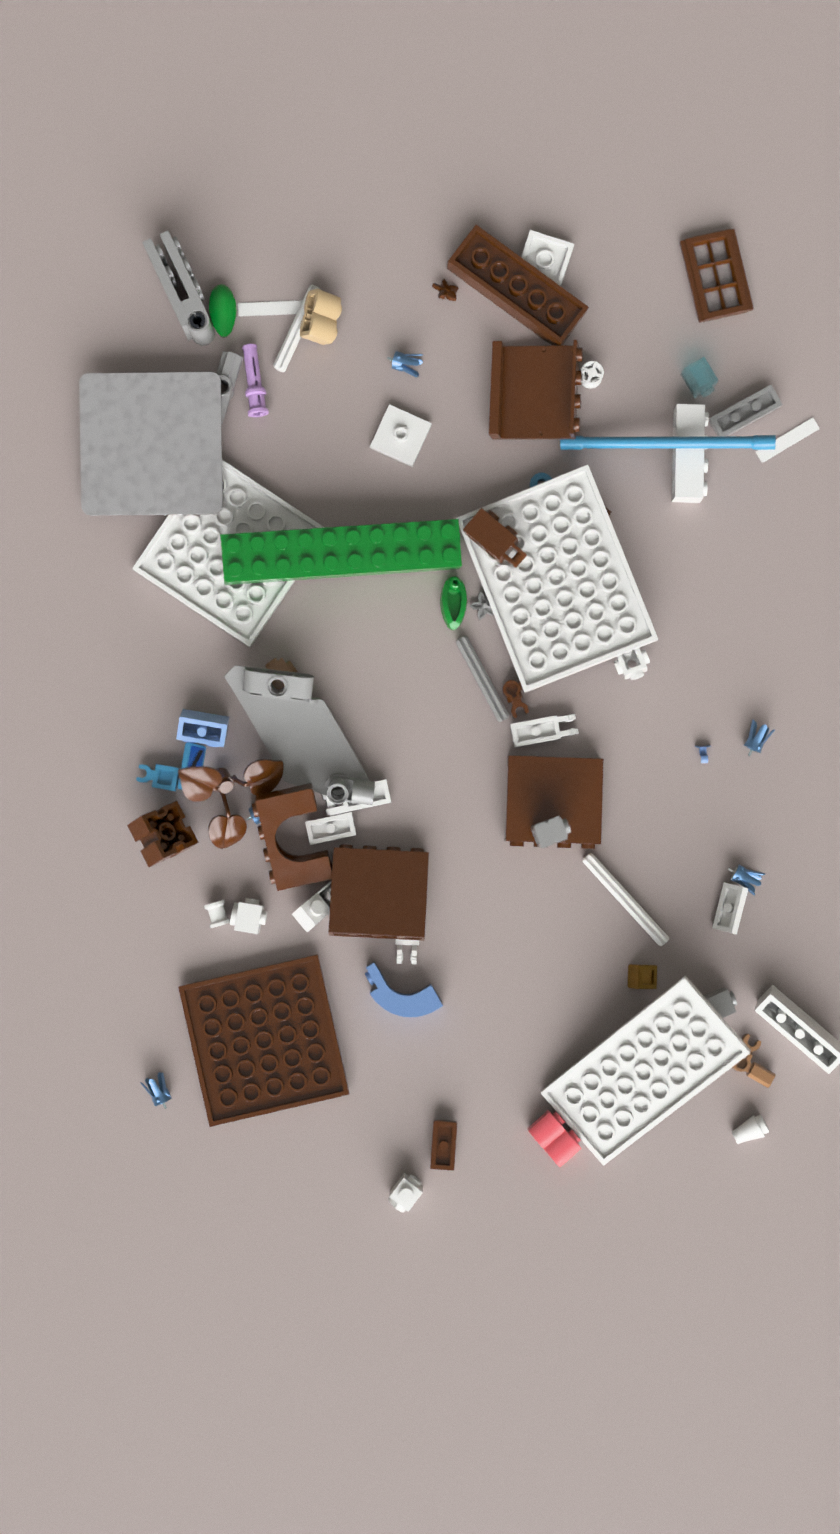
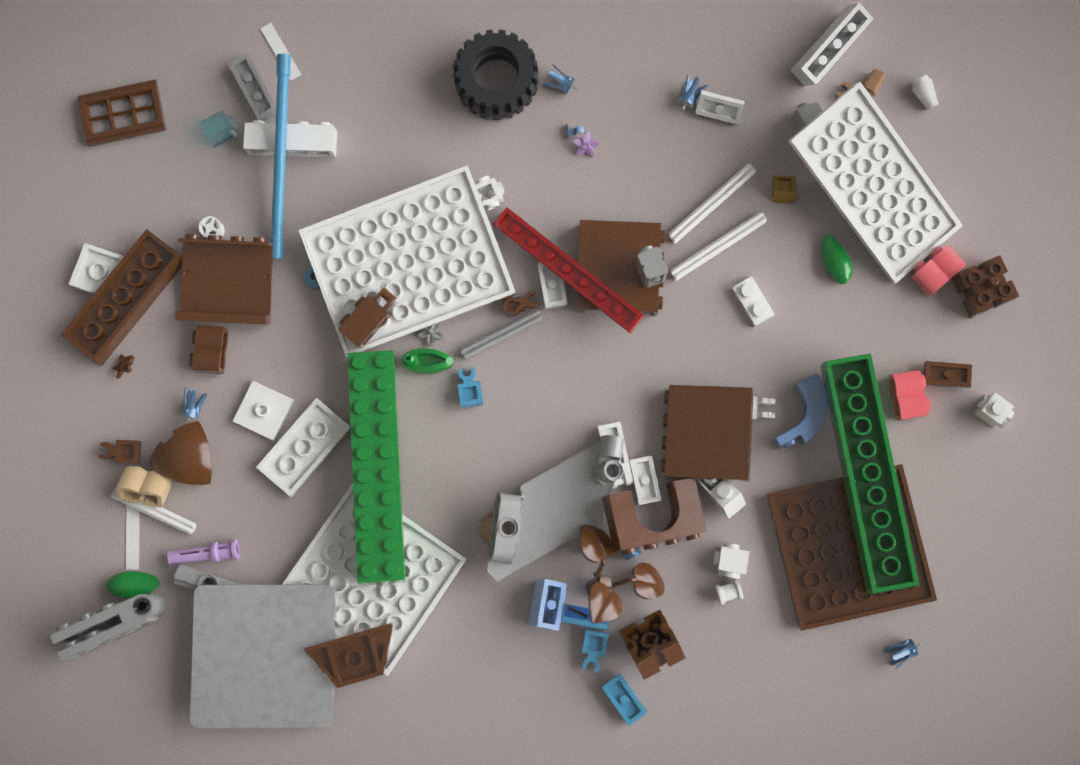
camera: 85 degrees left, 5 degrees down
(110, 807) = (624, 699): none -> dark azure plate
(150, 534) = (354, 656): none -> reddish brown wing
(336, 1057) = (869, 474): none -> green brick
(351, 356) = (184, 456): none -> reddish brown brick
(356, 295) = (125, 451): none -> reddish brown plate
(362, 478) = (303, 447): none -> white plate
(421, 646) = (469, 392): none -> dark azure plate
(421, 1103) = (909, 395): none -> coral brick
(463, 377) = (209, 349): none -> reddish brown brick
(520, 942) = (752, 301): none -> white plate
(536, 1187) = (985, 286): none -> reddish brown brick
(549, 746) = (568, 270): none -> red tile
(565, 1030) = (836, 259): none -> green arm
(579, 906) = (718, 246): none -> white axle
(688, 764) = (585, 144): none -> lavender plant
(790, 657) = (495, 47): none -> black tyre

